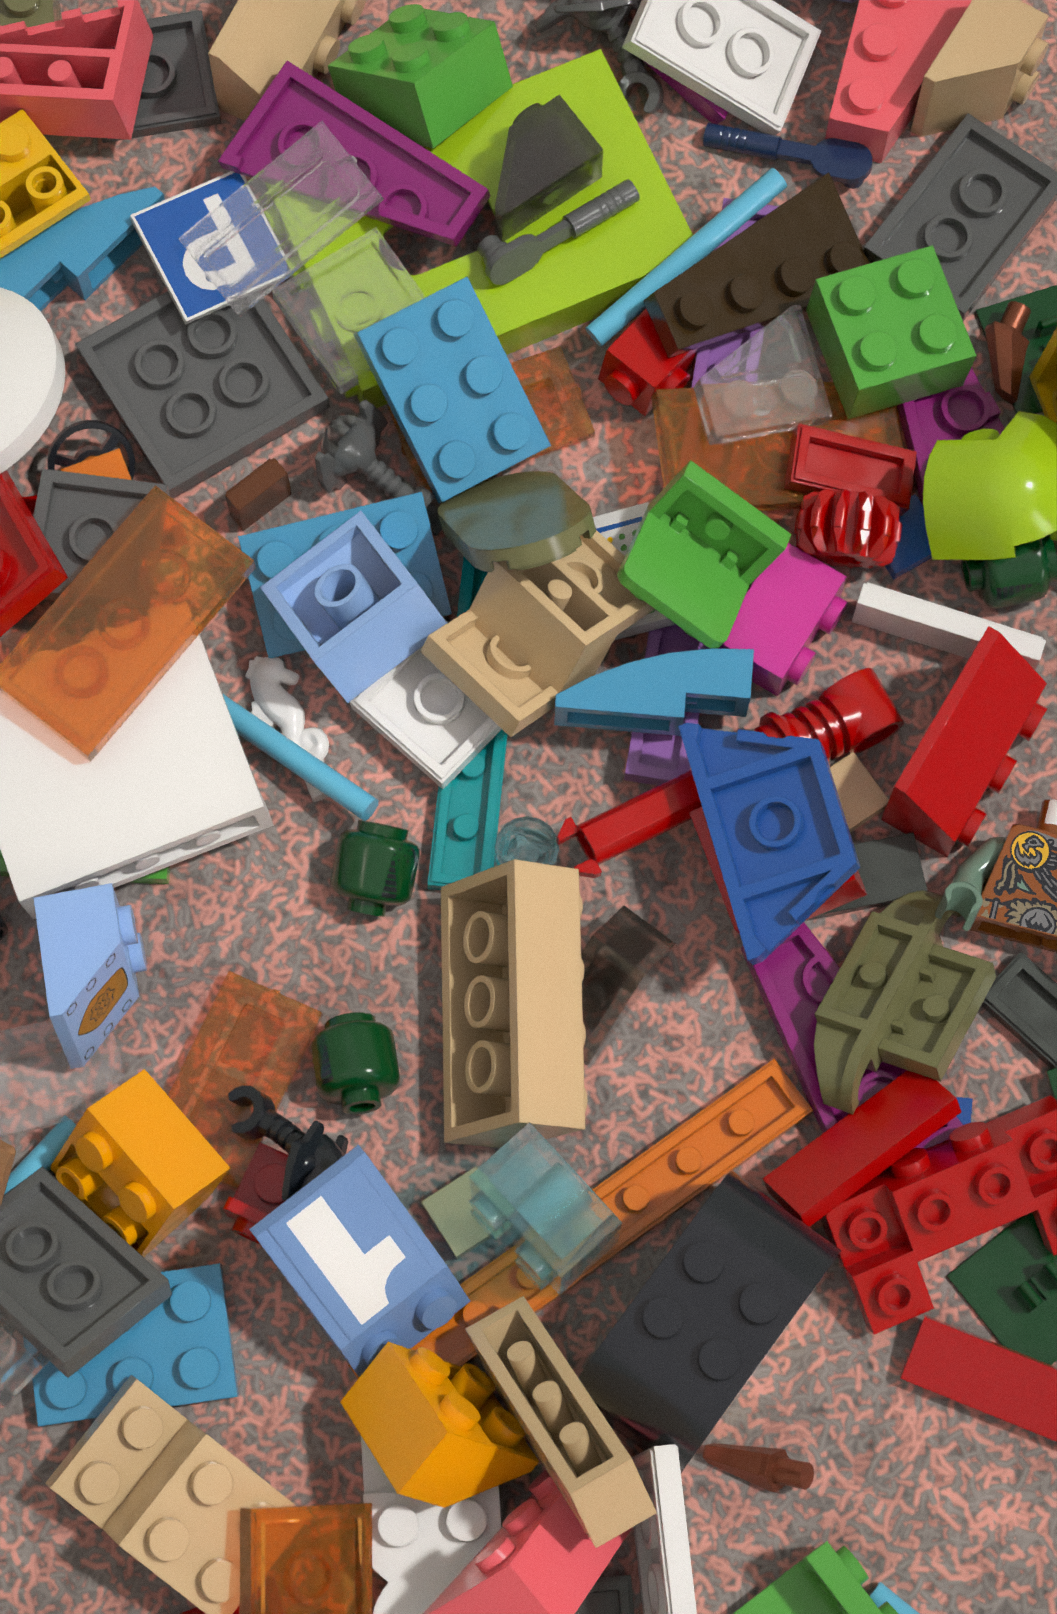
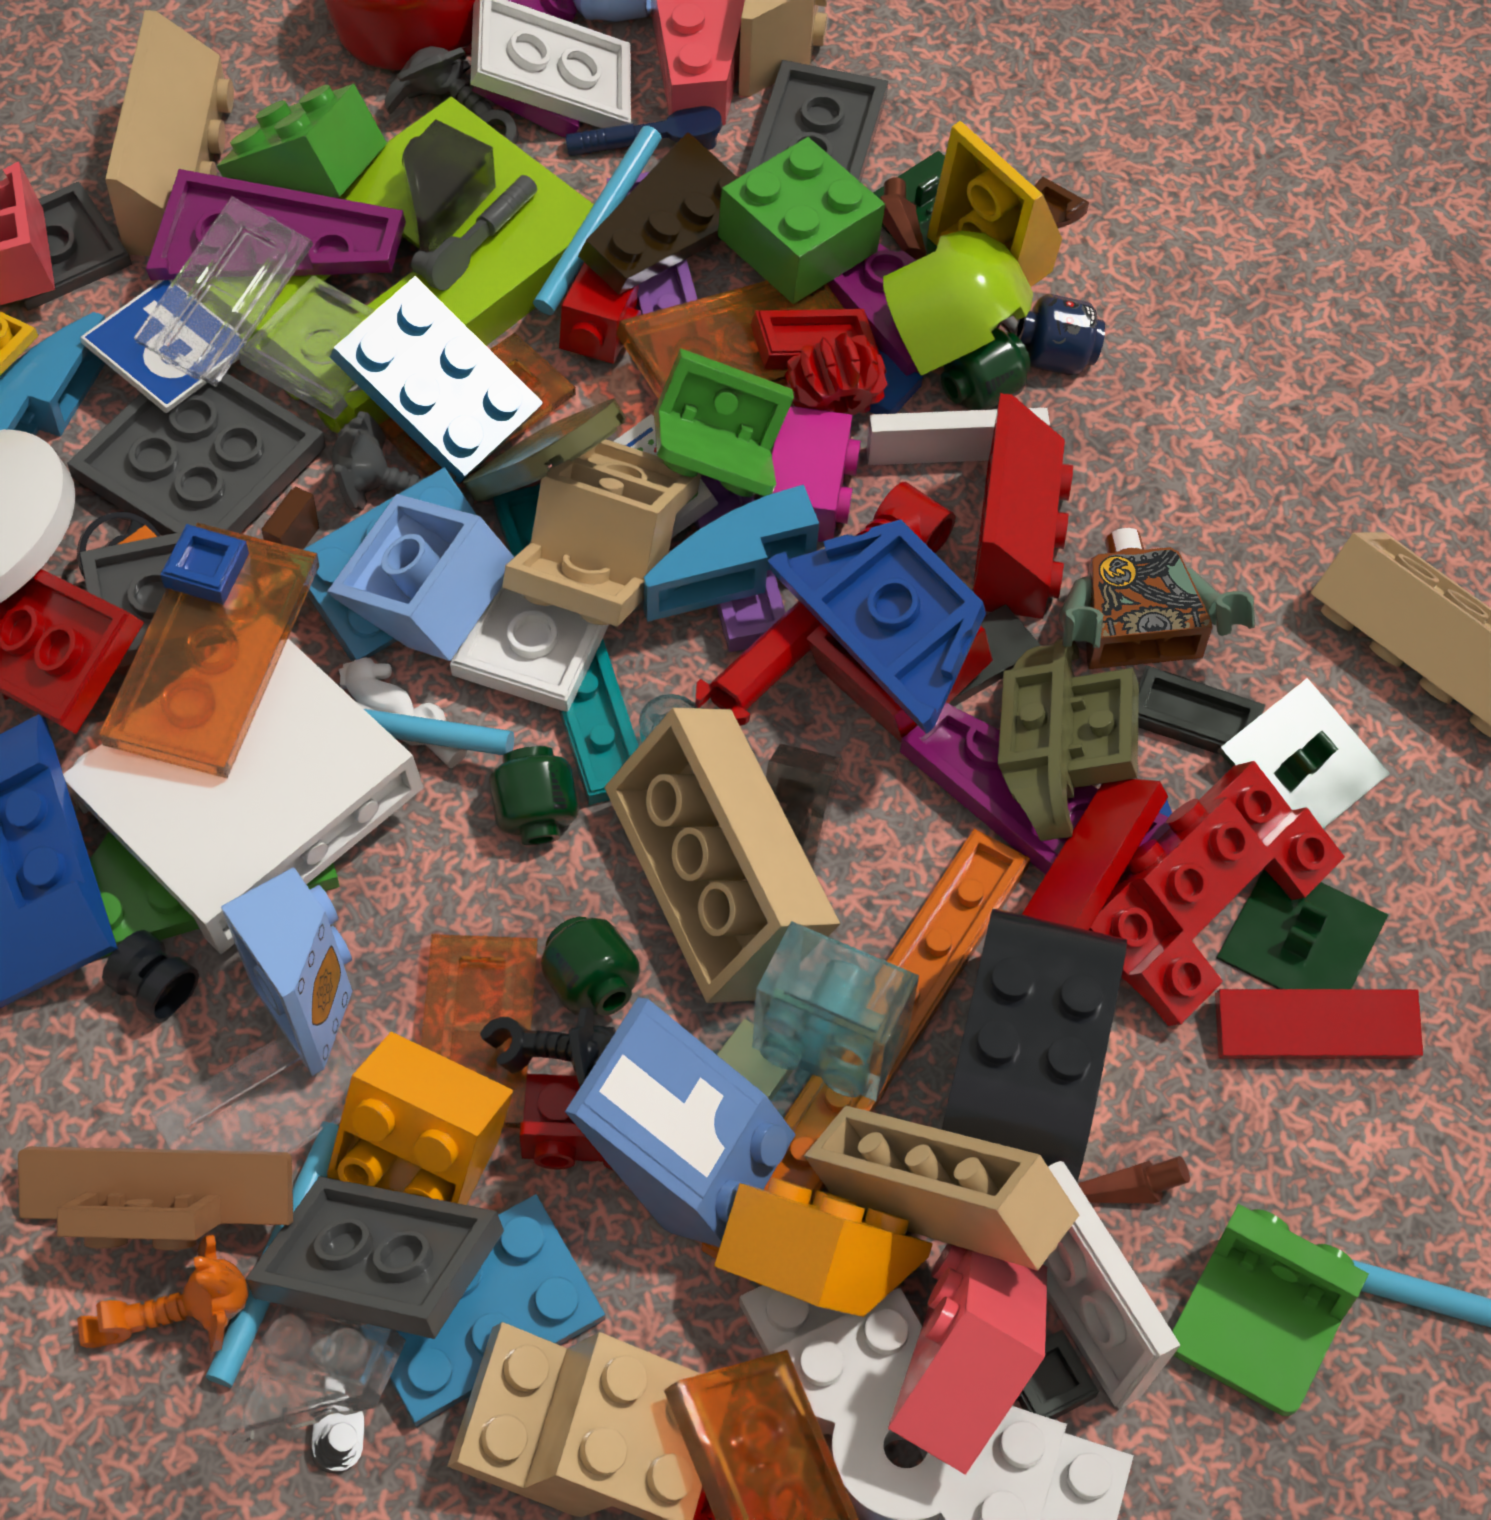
camera: 25 degrees left, 15 degrees down
(144, 537) = (204, 564): none -> blue tile
(765, 384) = (711, 292): clear wing -> none

